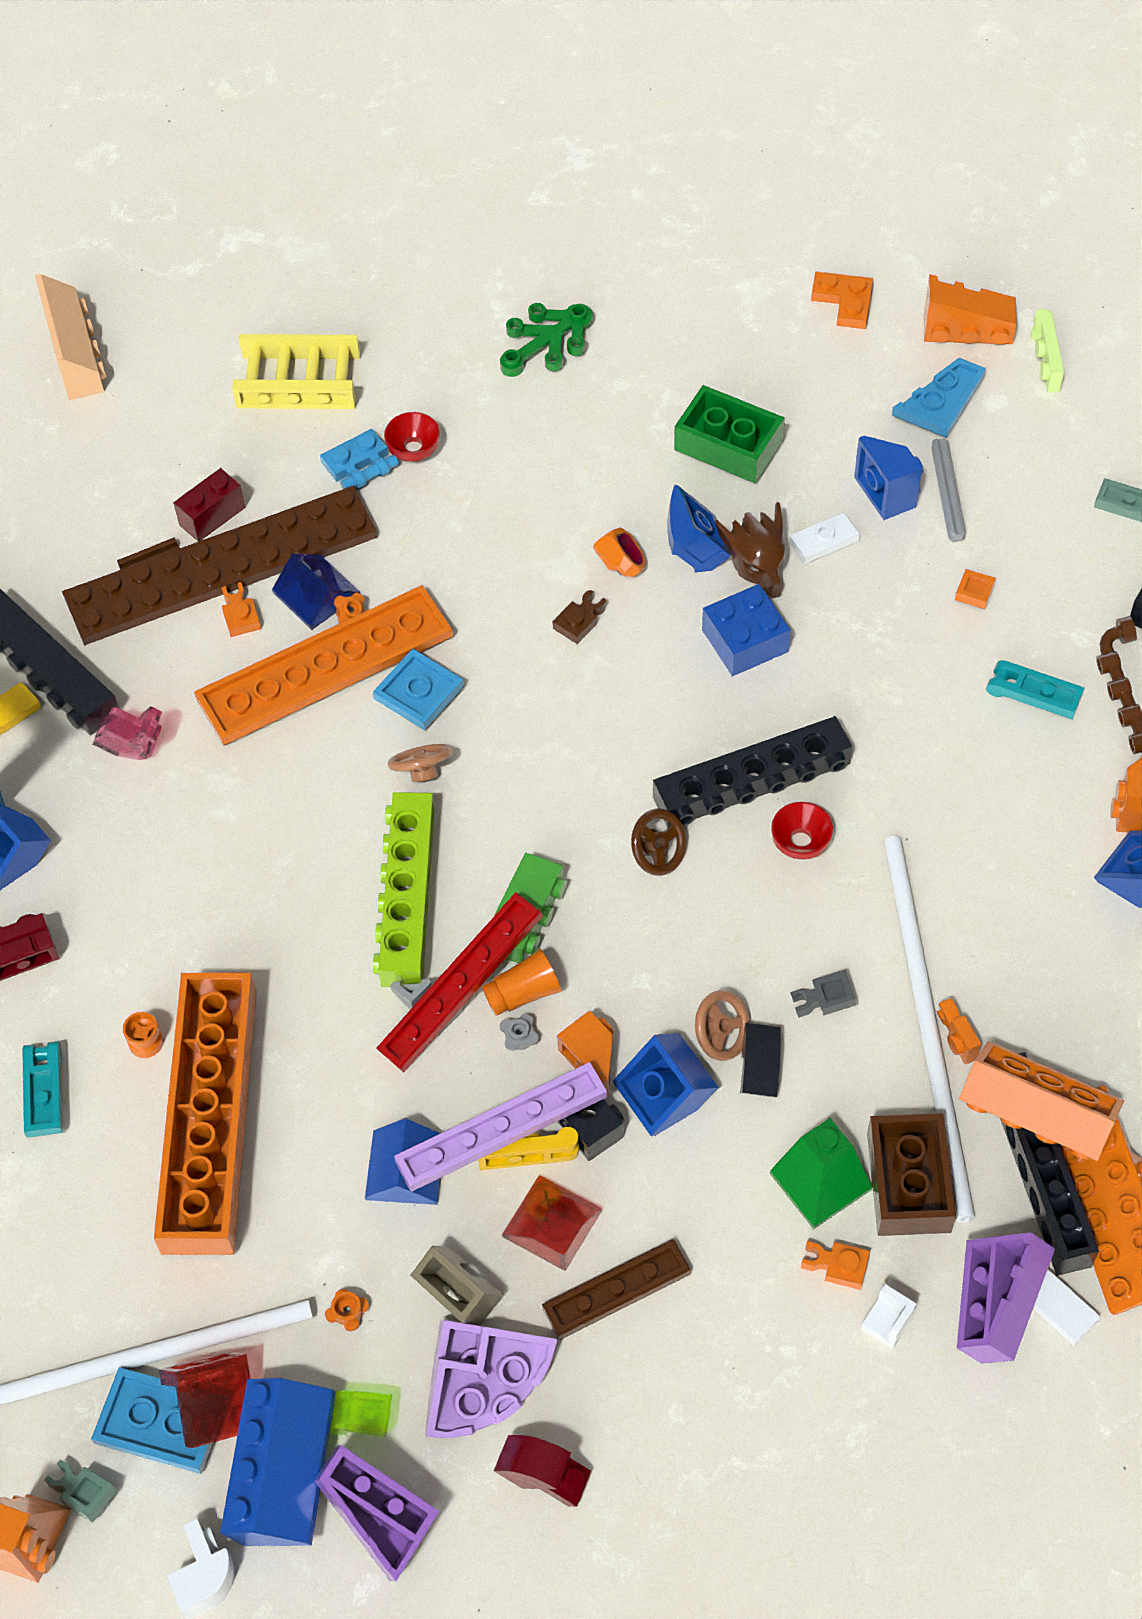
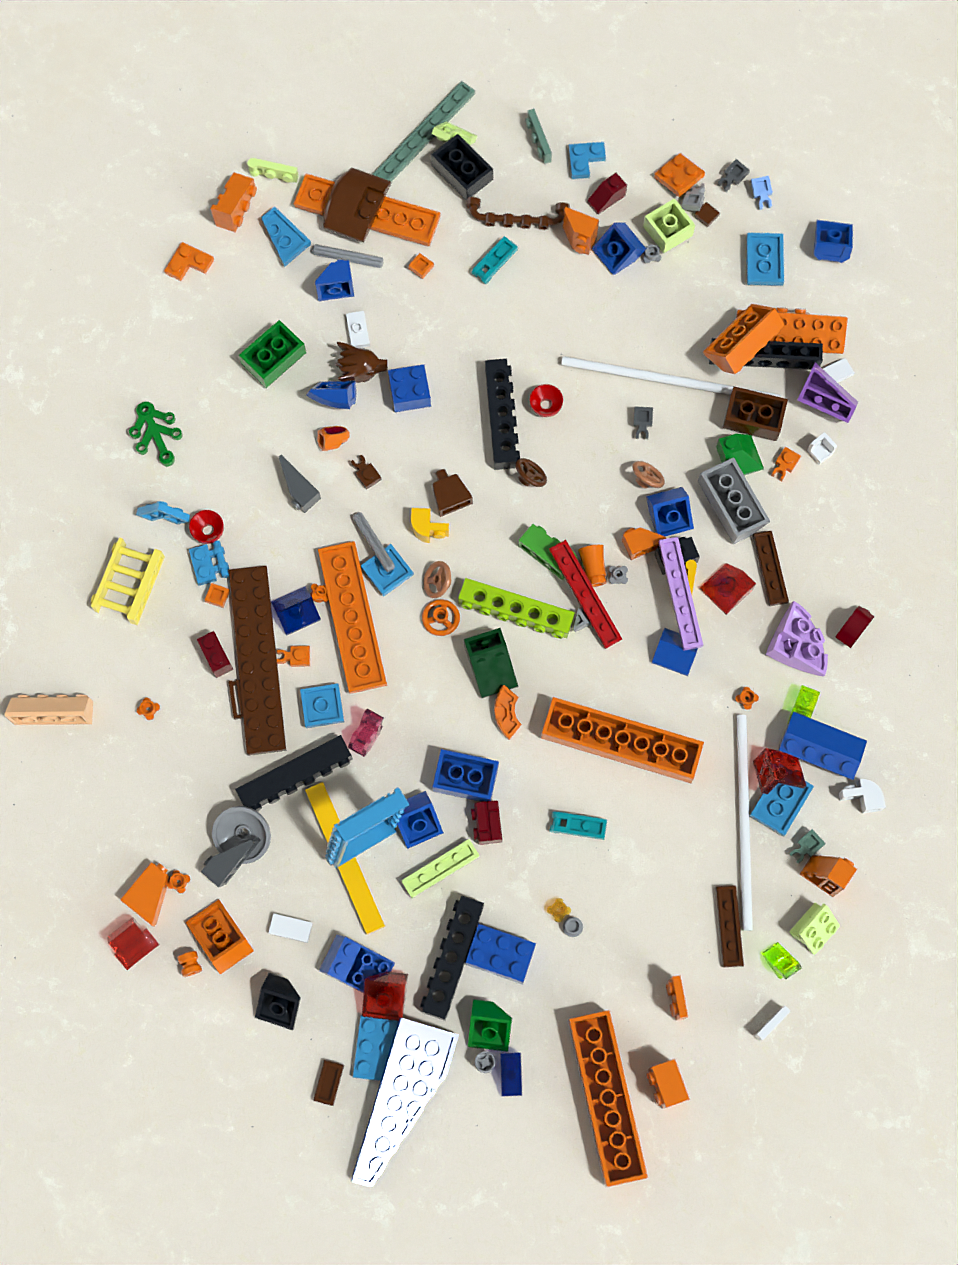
camera: 75 degrees left, 15 degrees up
(86, 889) = (465, 776): none -> blue brick
(106, 453) = (142, 709): none -> orange plate
(145, 1028) = (565, 762): orange wheel -> none
(164, 665) = (322, 705): none -> dark azure plate
(217, 922) = (505, 712): none -> orange tile
(297, 874) = (490, 662): none -> dark green slope
(307, 483) = (217, 595): none -> orange plate
(360, 773) = (440, 610): none -> orange piece
(376, 1509) = (862, 703): medium lavender wedge -> none
(414, 365) = (162, 510): none -> dark azure plate
(444, 1271) = (761, 632): dark tan brick -> none
(457, 653) = (374, 542): none -> light grey axle
(512, 714) = (424, 528): none -> yellow brick
(520, 530) = (302, 492): none -> dark grey slope
(580, 737) = (450, 493): none -> reddish brown torso
(718, 1177) = (733, 500): none -> light grey slope
(760, 1060) = (668, 461): black slope -> none
(961, 1036) = (685, 366): orange plate -> none
(1040, 465) = (354, 203): none -> reddish brown slope
(1041, 493) = (393, 218): none -> orange plate

